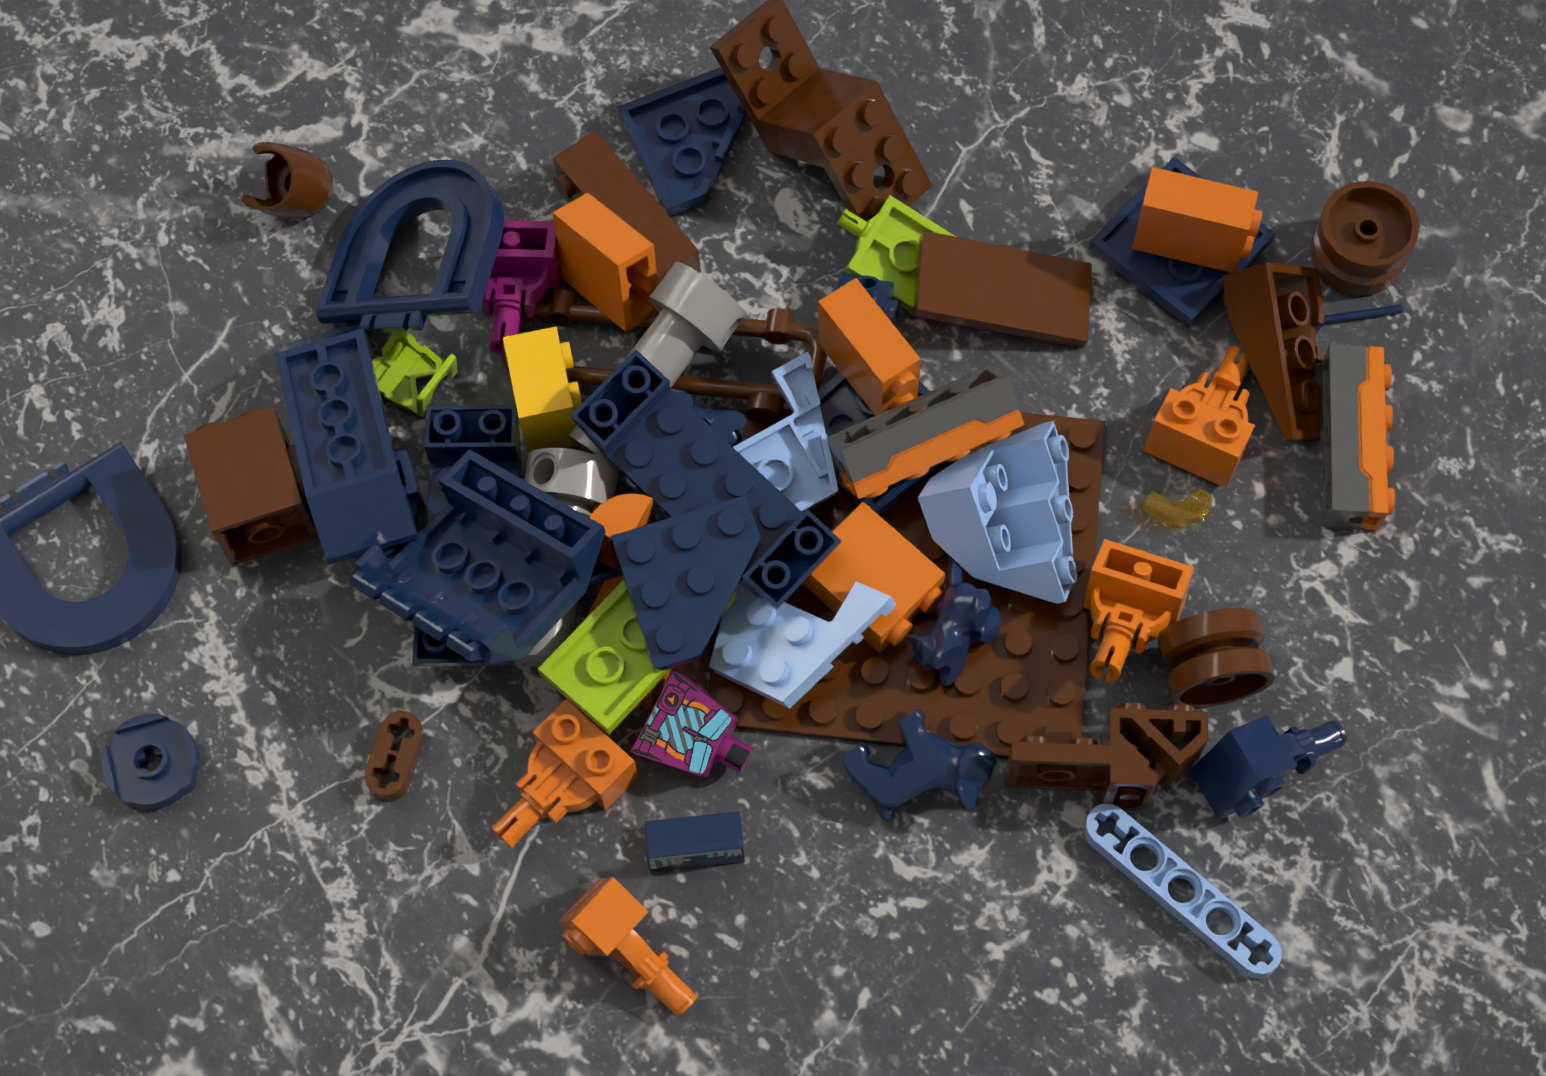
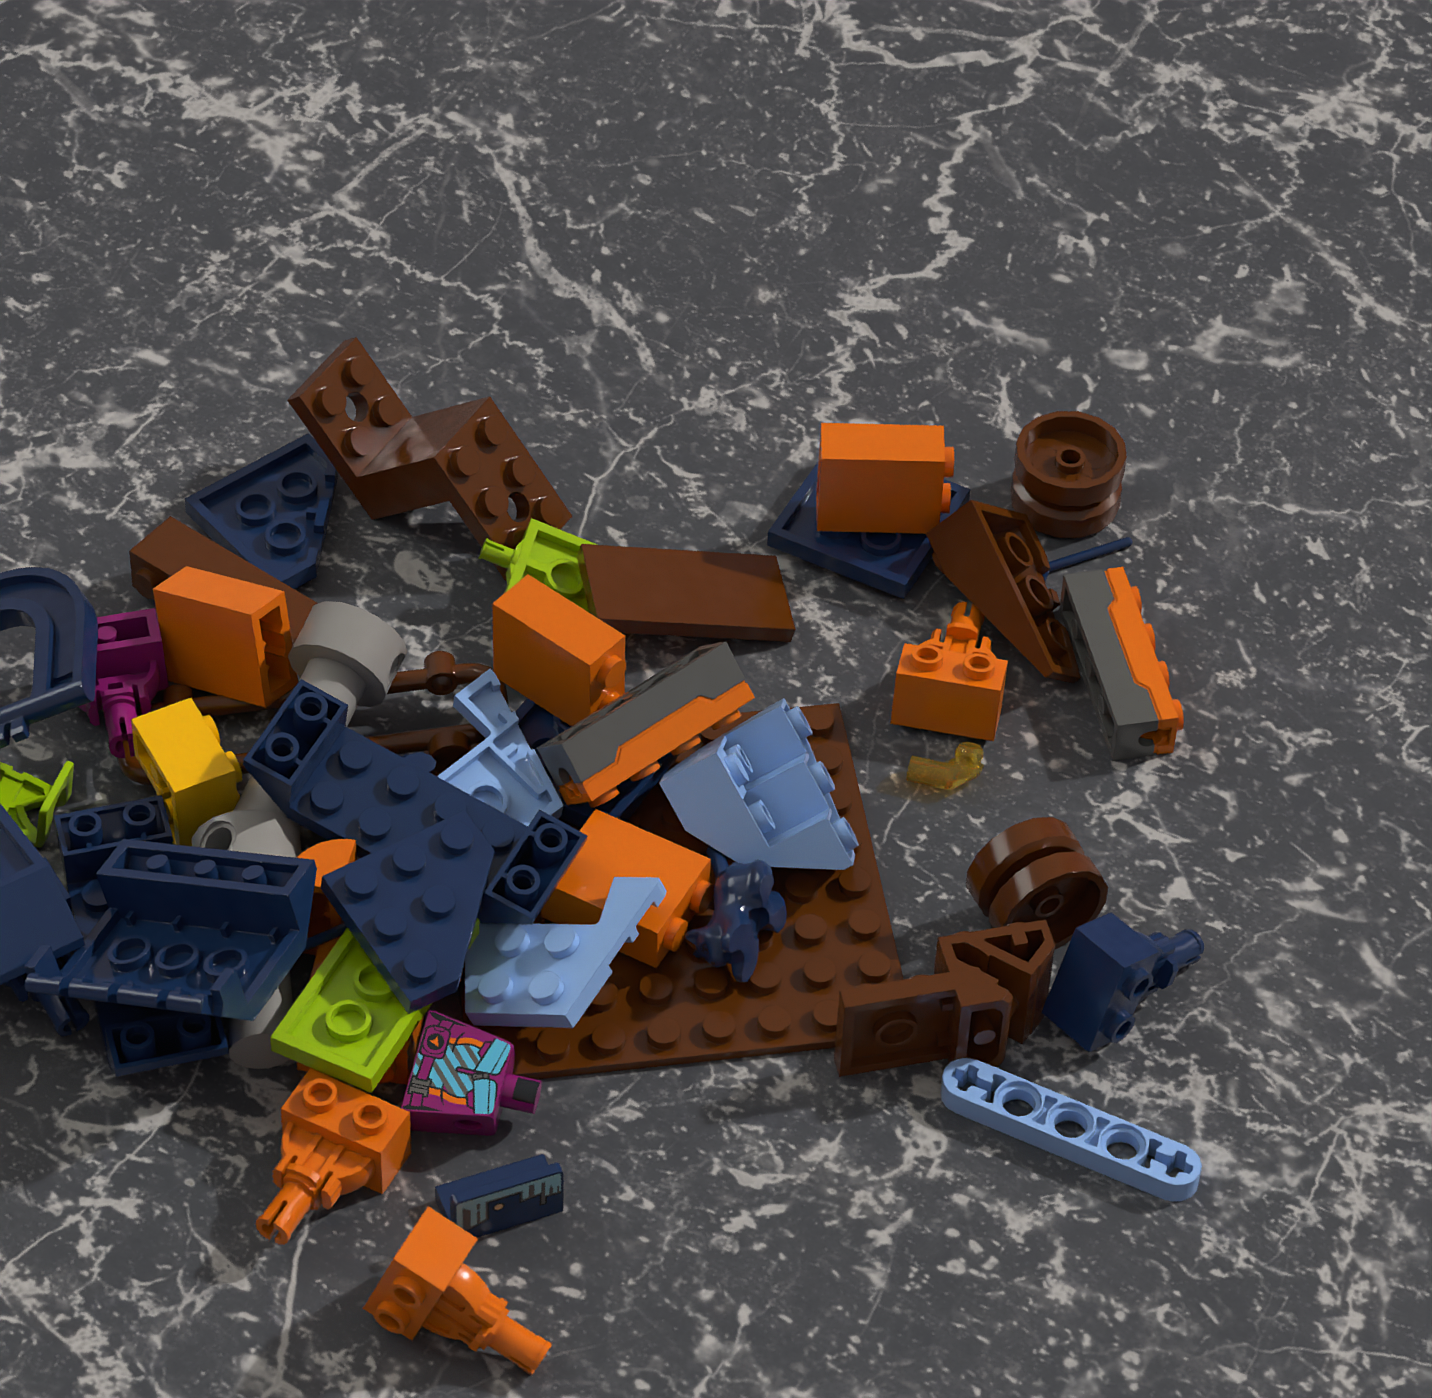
camera: 20 degrees left, 20 degrees down
(384, 752) = (102, 1185): reddish brown beam -> none
(921, 766) = (740, 1060): dark blue animal -> none
(1133, 598) = (925, 849): orange brick -> none

